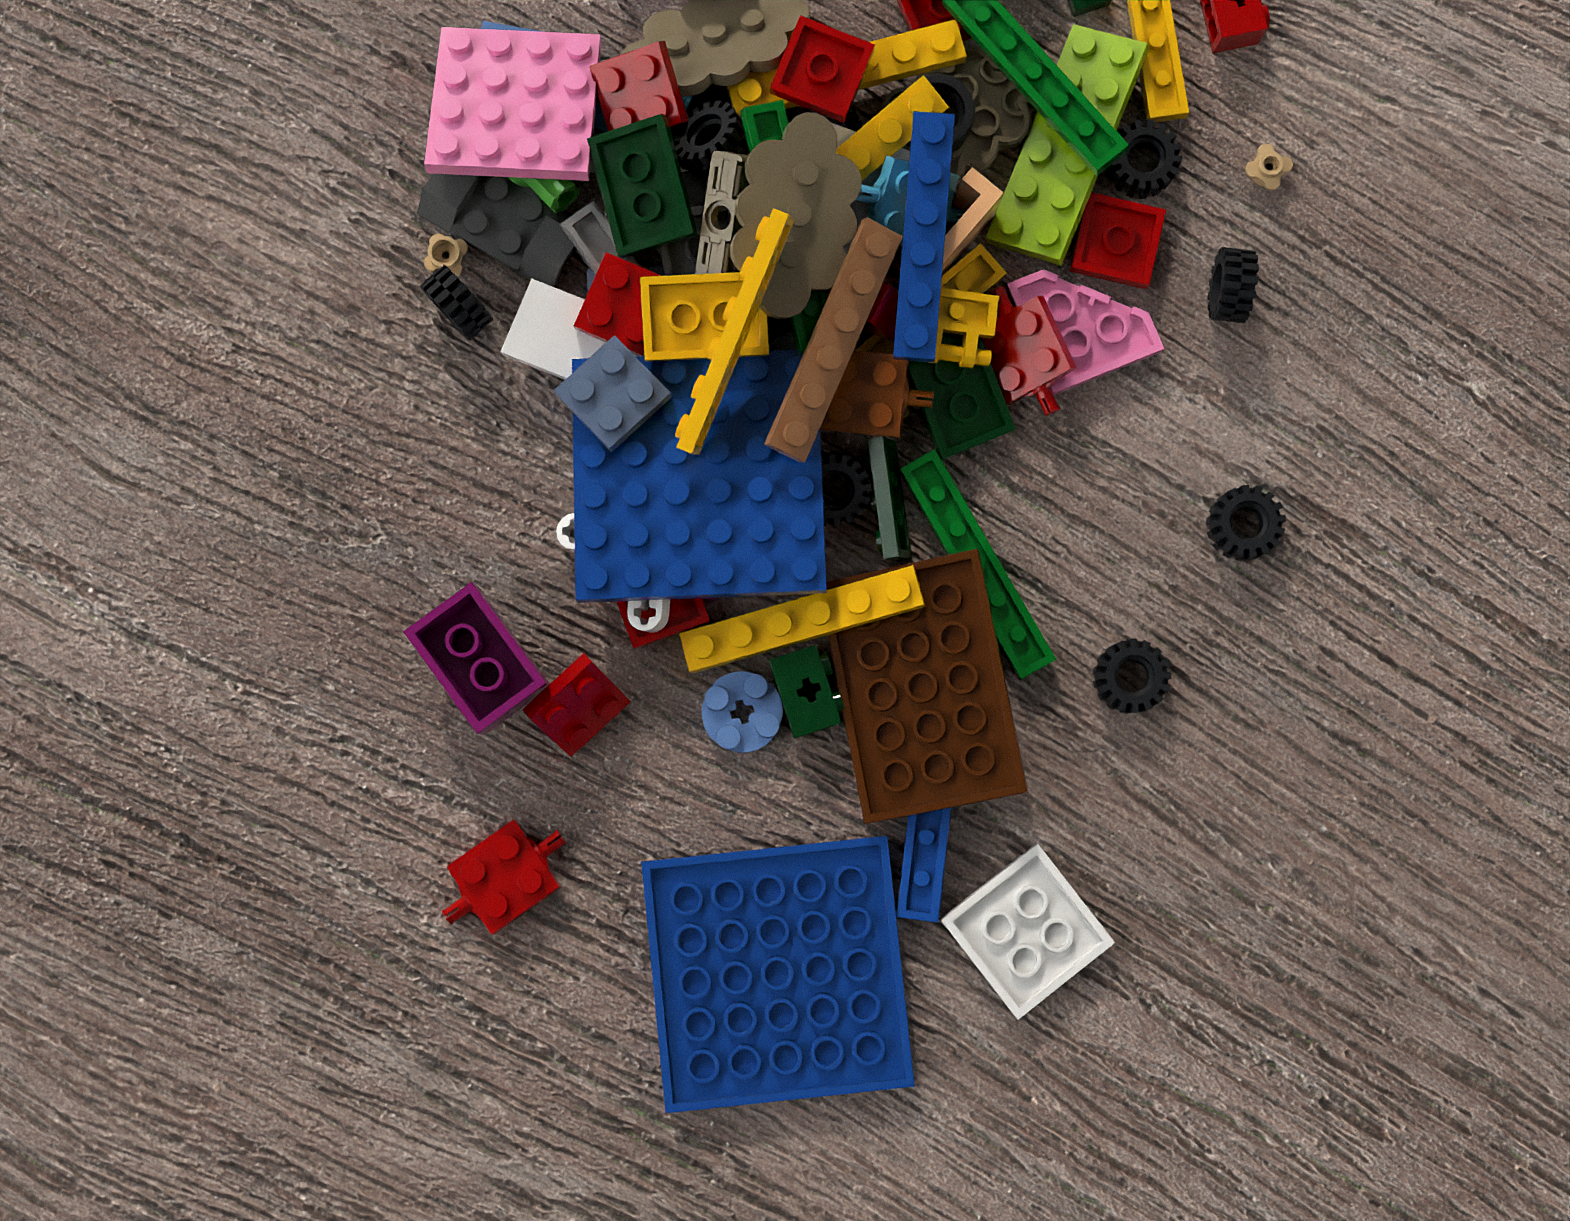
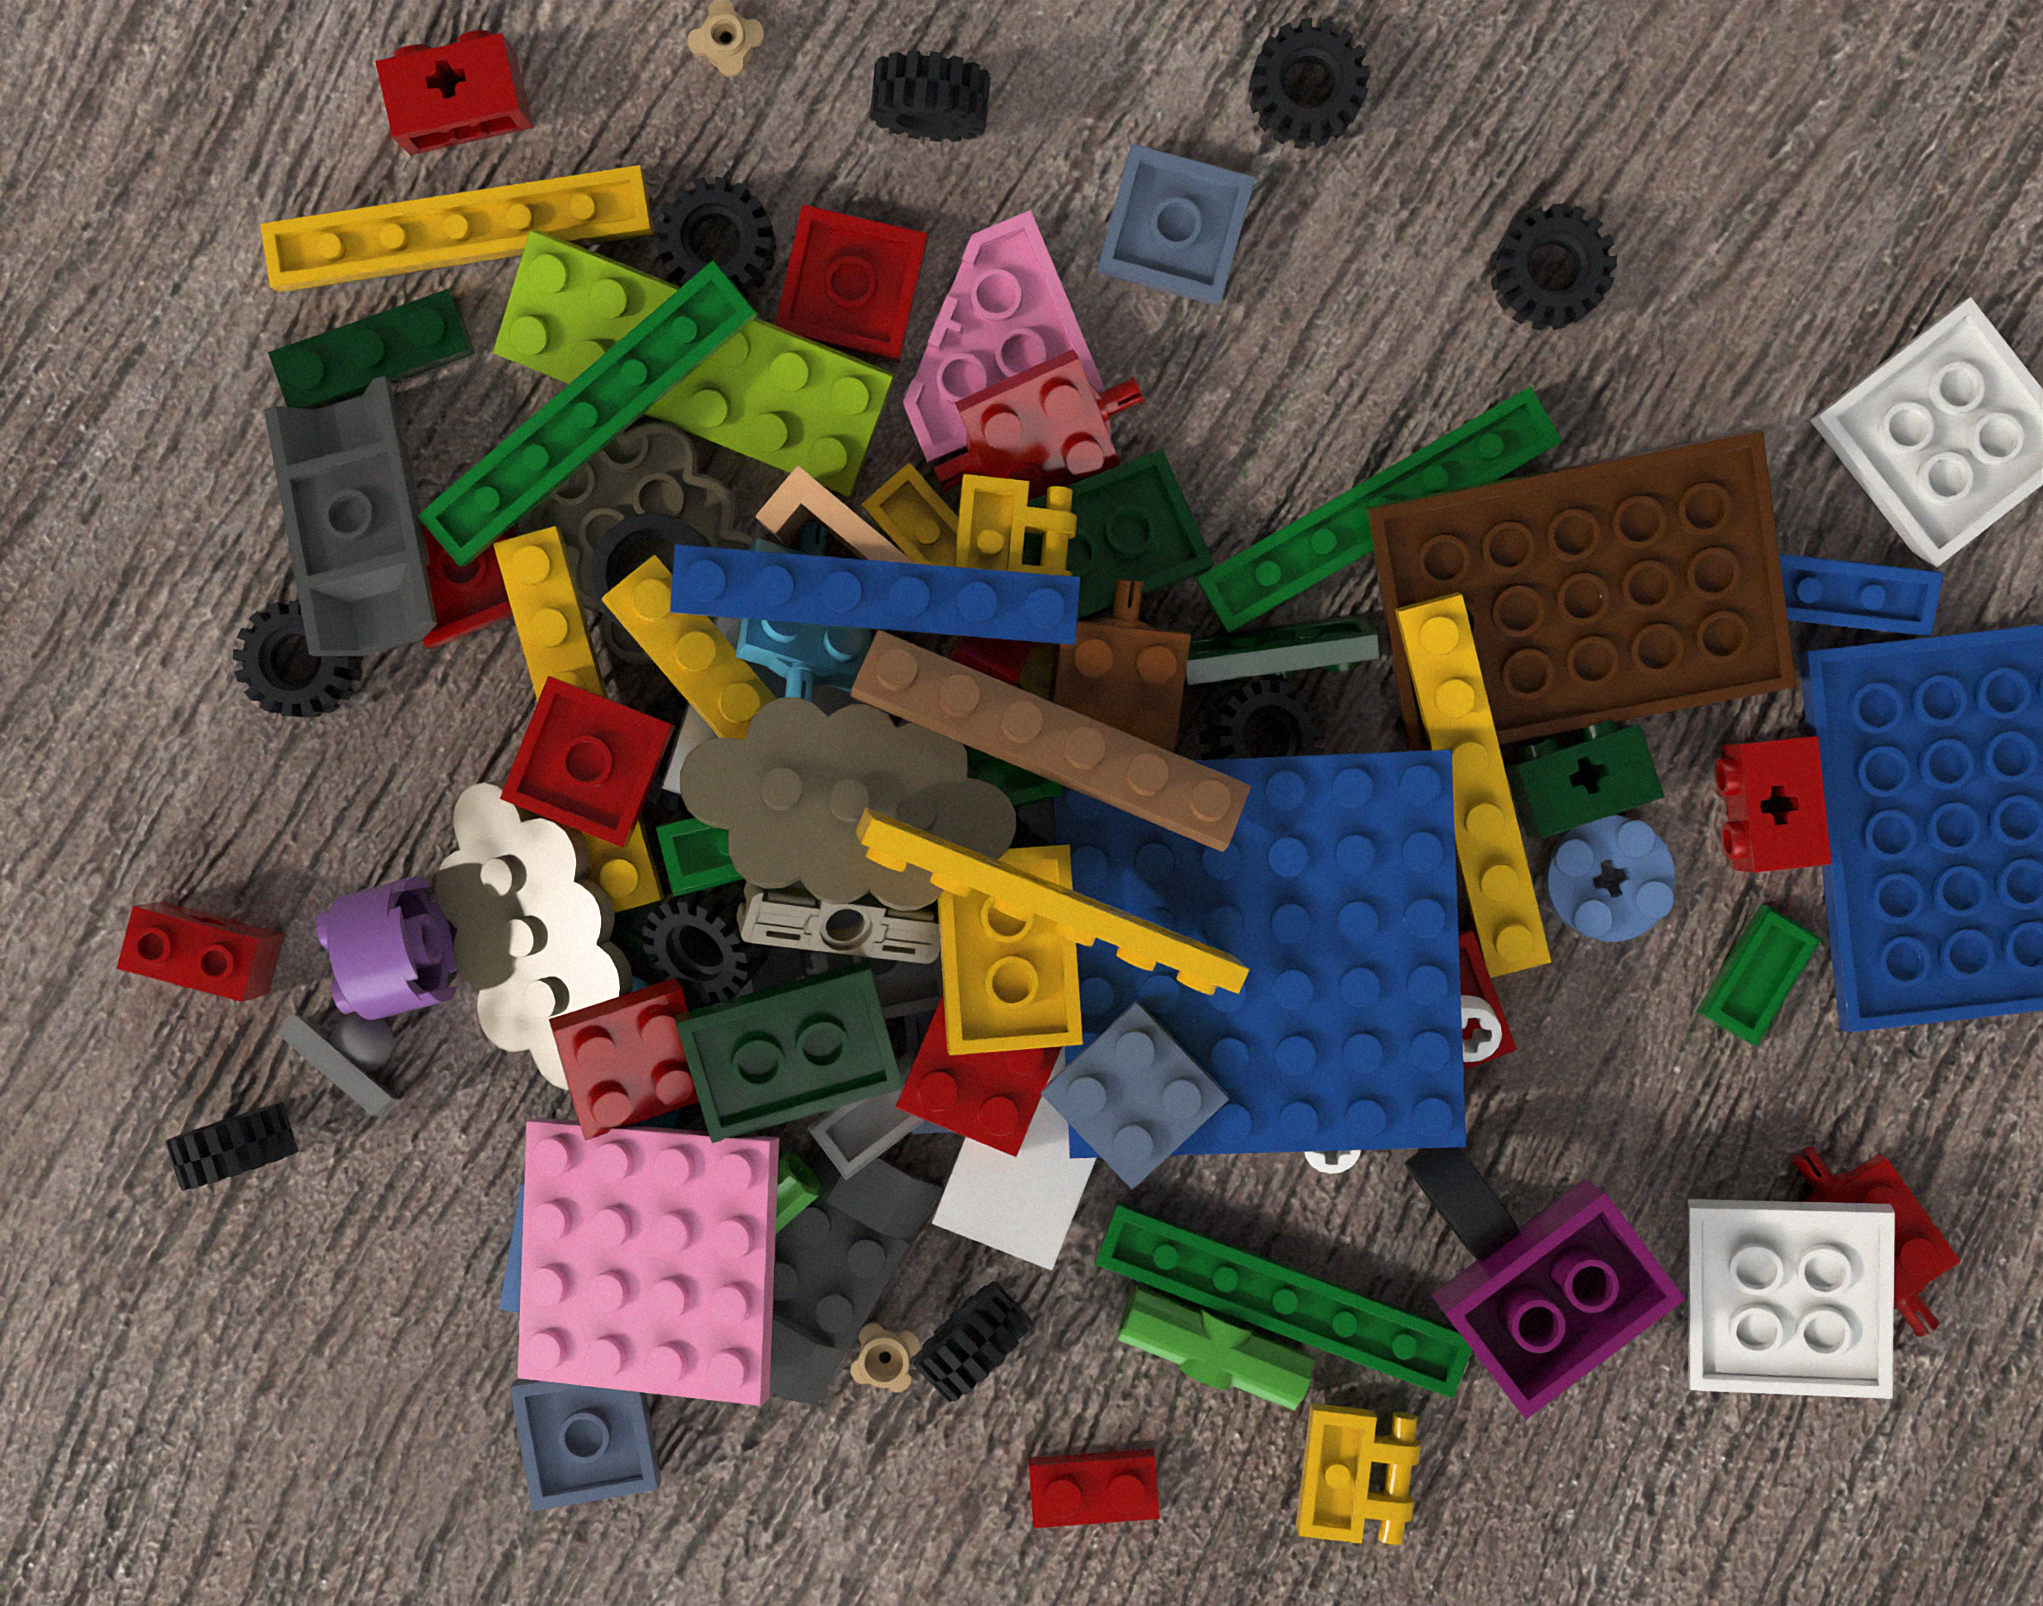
camera: 90 degrees left, 5 degrees up
(358, 383) = (1093, 1488): none -> red plate
(364, 535) = (1338, 1471): none -> yellow plate
(399, 70) = (583, 1442): none -> sand blue plate
(447, 458) = (1215, 1348): none -> bright green piece
(470, 819) = (1791, 1297): none -> white plate
(477, 497) = (1283, 1299): none -> green plate
(540, 608) = (1463, 1199): none -> black tyre
(576, 705) = (1614, 1138): red plate -> none
(678, 809) = (1758, 975): none -> green tile
(811, 824) = (1784, 836): none -> red brick
(1156, 439) = (1175, 225): none -> sand blue plate

